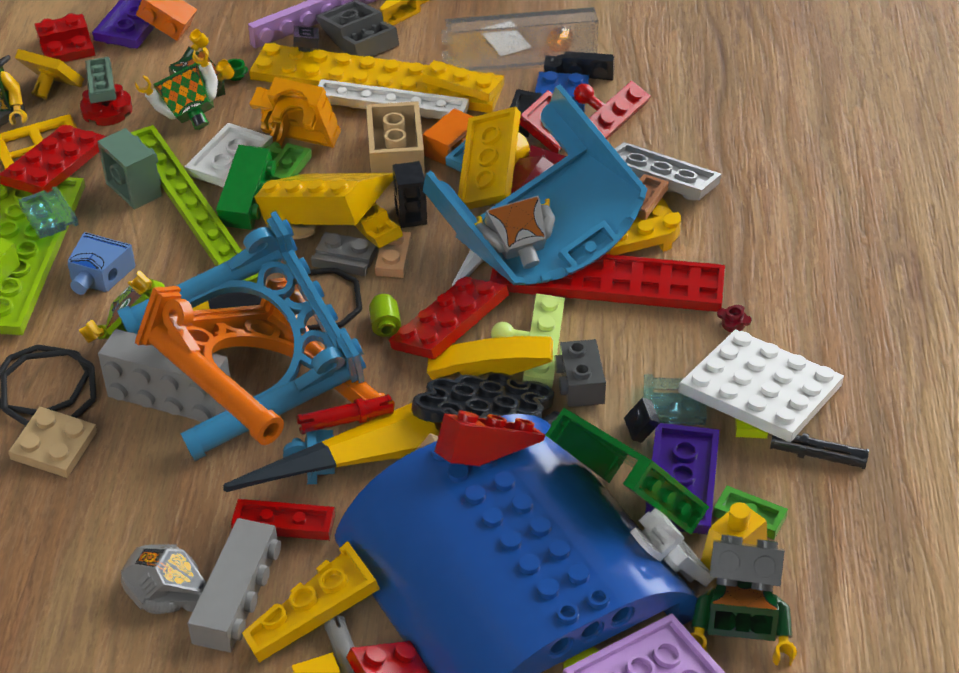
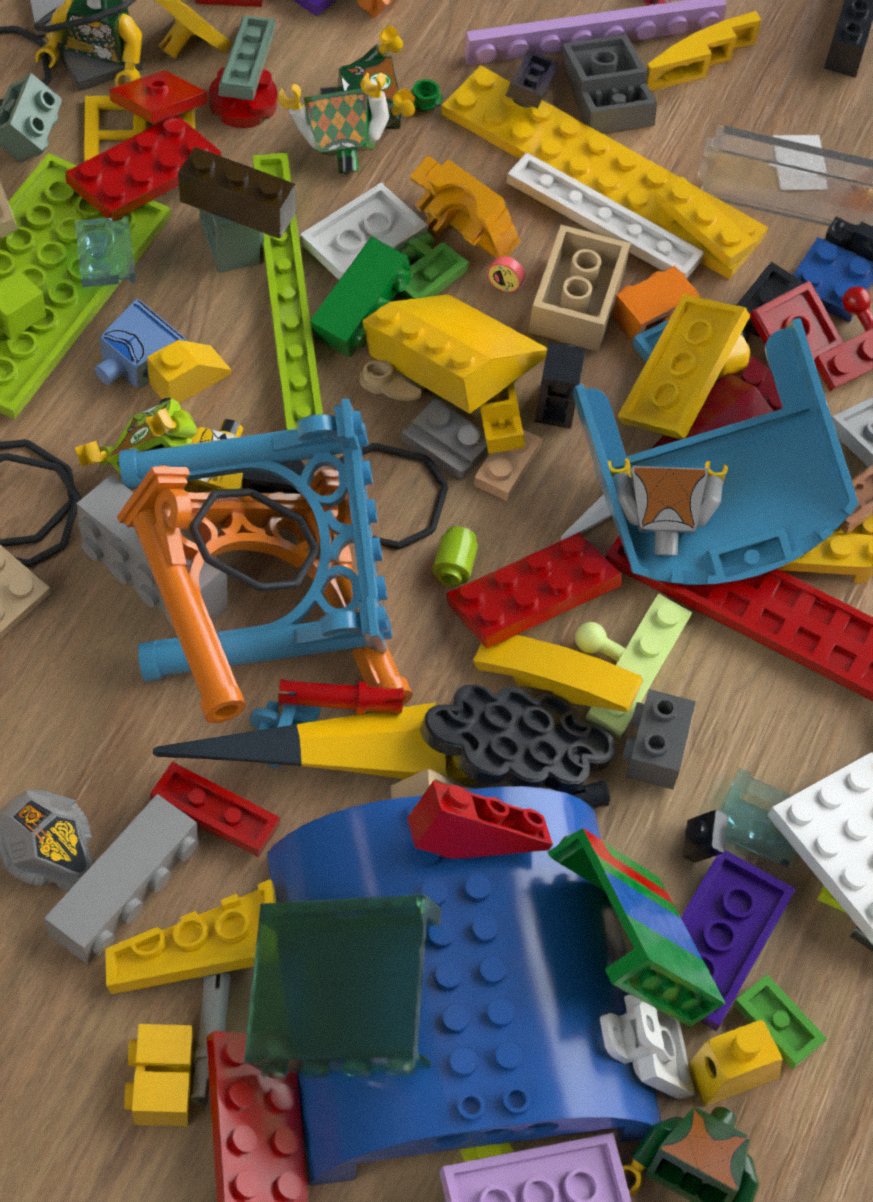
camera: 15 degrees right, 15 degrees up
(45, 118) = (158, 96): none -> red plate
(131, 260) = (185, 369): none -> yellow slope
(133, 139) = (237, 192): none -> dark brown brick
(233, 345) = (236, 574): none -> black piece
(340, 149) = (506, 274): none -> tile
(436, 574) = (339, 986): none -> clear green panel
(746, 562) = (727, 1112): dark grey brick -> none

